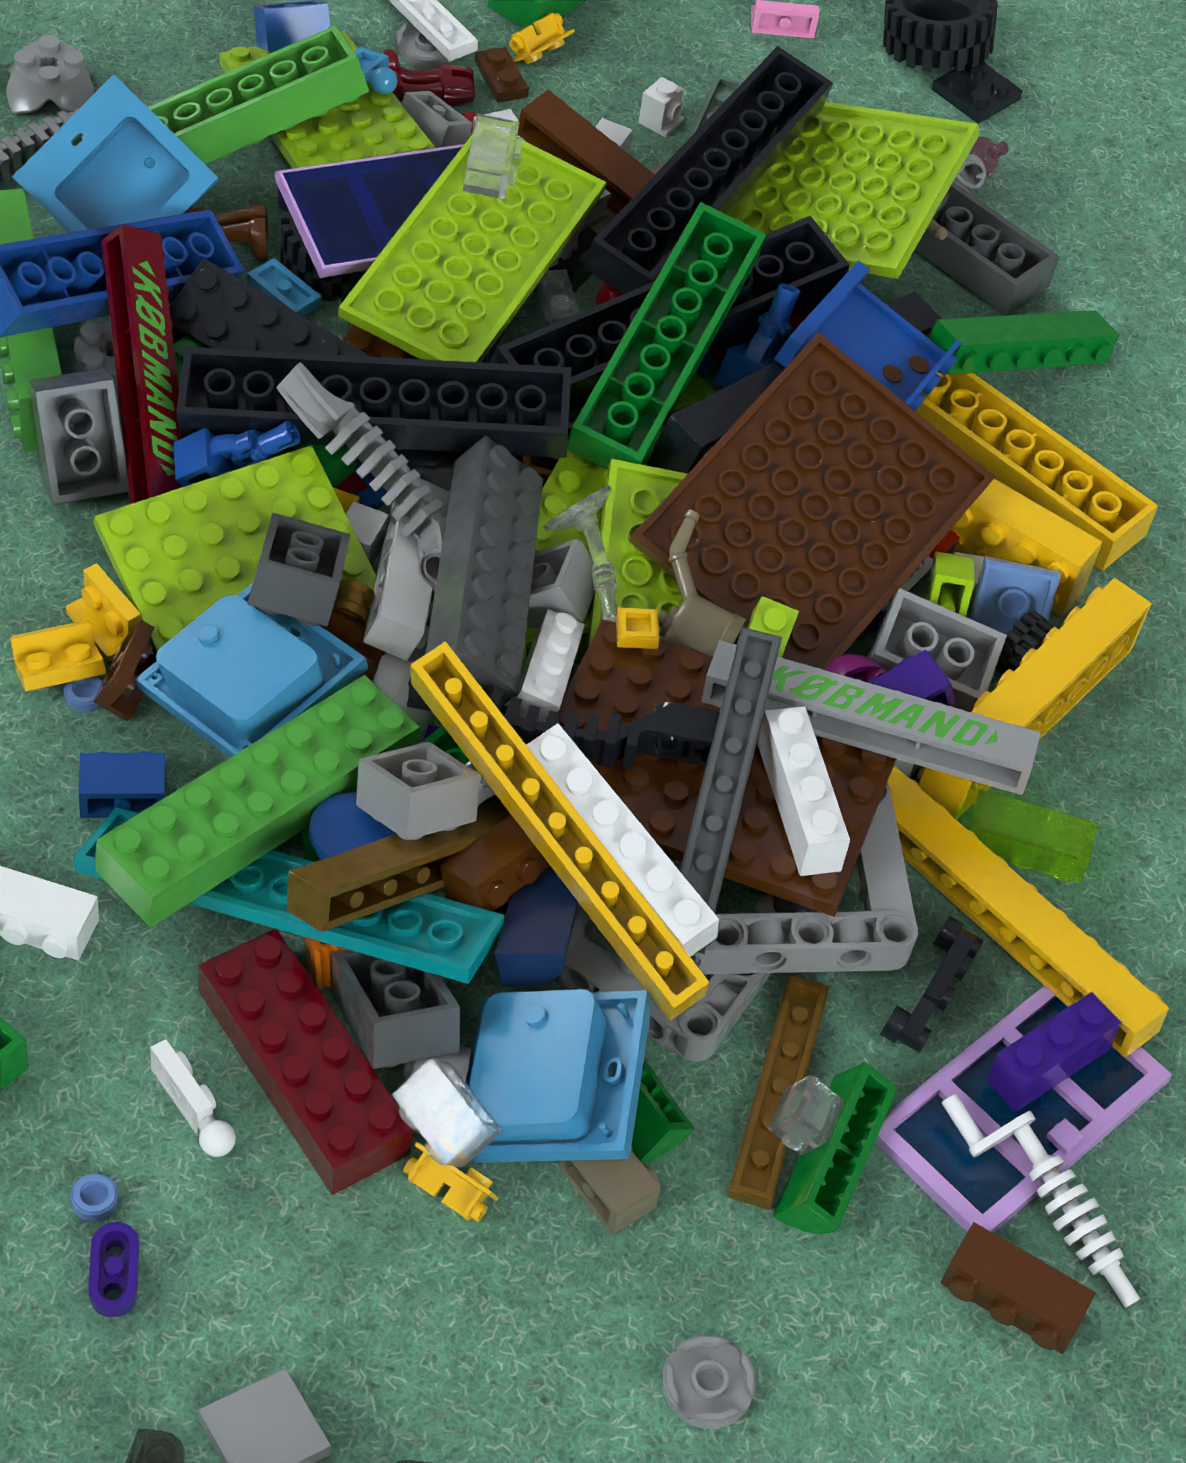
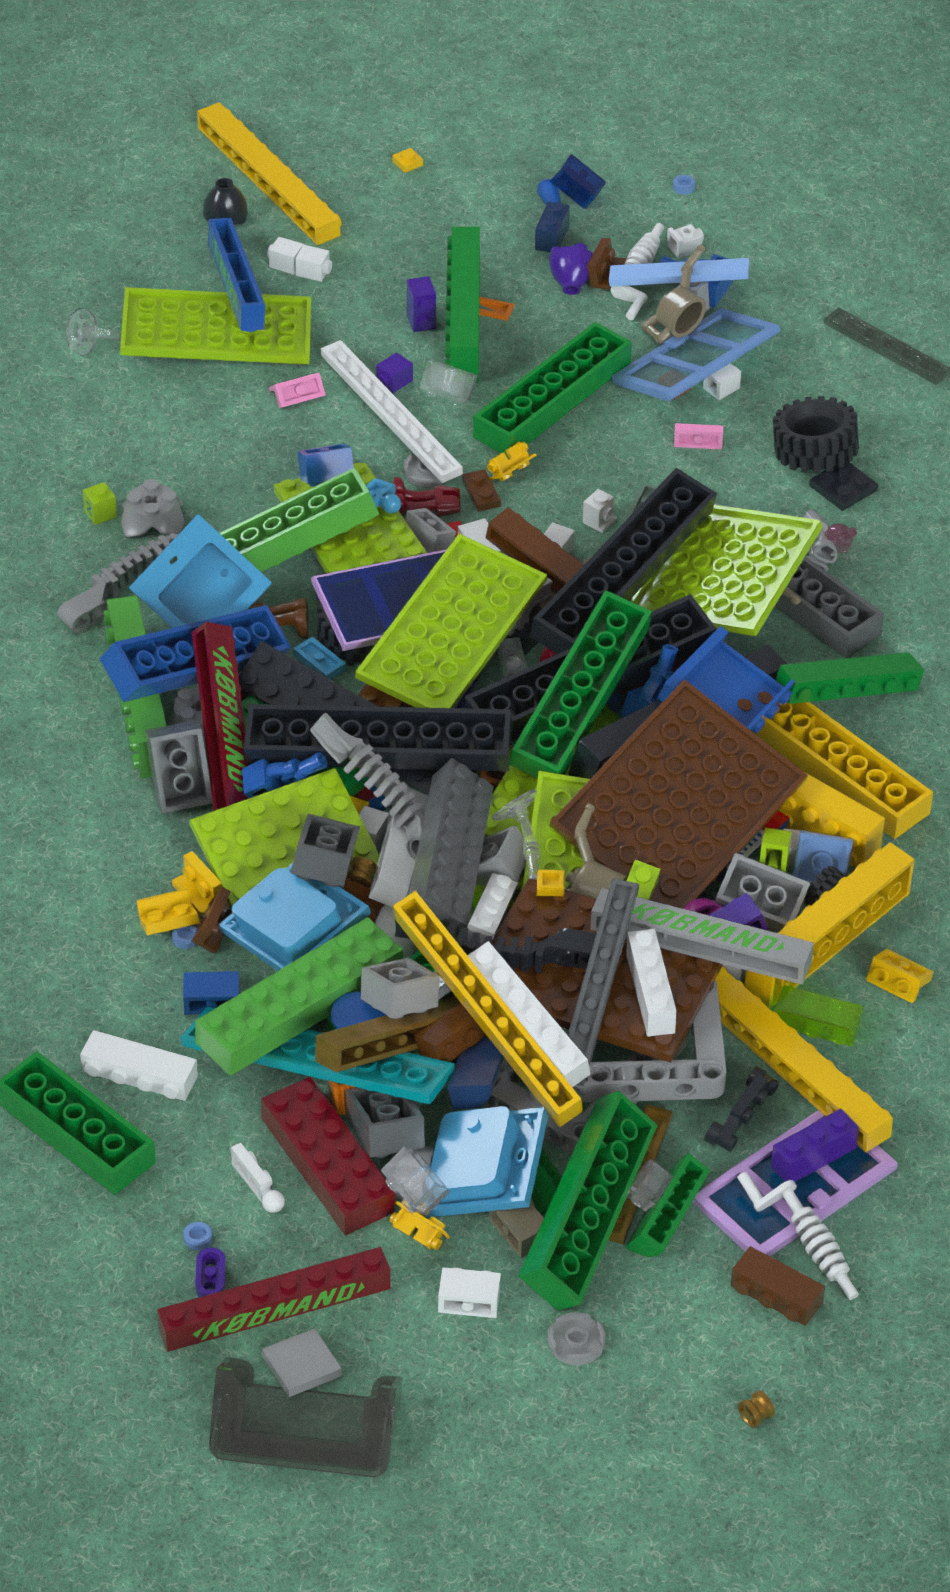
camera: 10 degrees right, 5 degrees down
(215, 1318) = (273, 1299): none -> dark red brick
(492, 155) = (463, 560): clear brick -> none
(535, 1301) = (469, 1292): none -> white brick
(717, 1150) = (588, 1201): none -> green brick
(1135, 774) = (898, 975): none -> yellow bracket

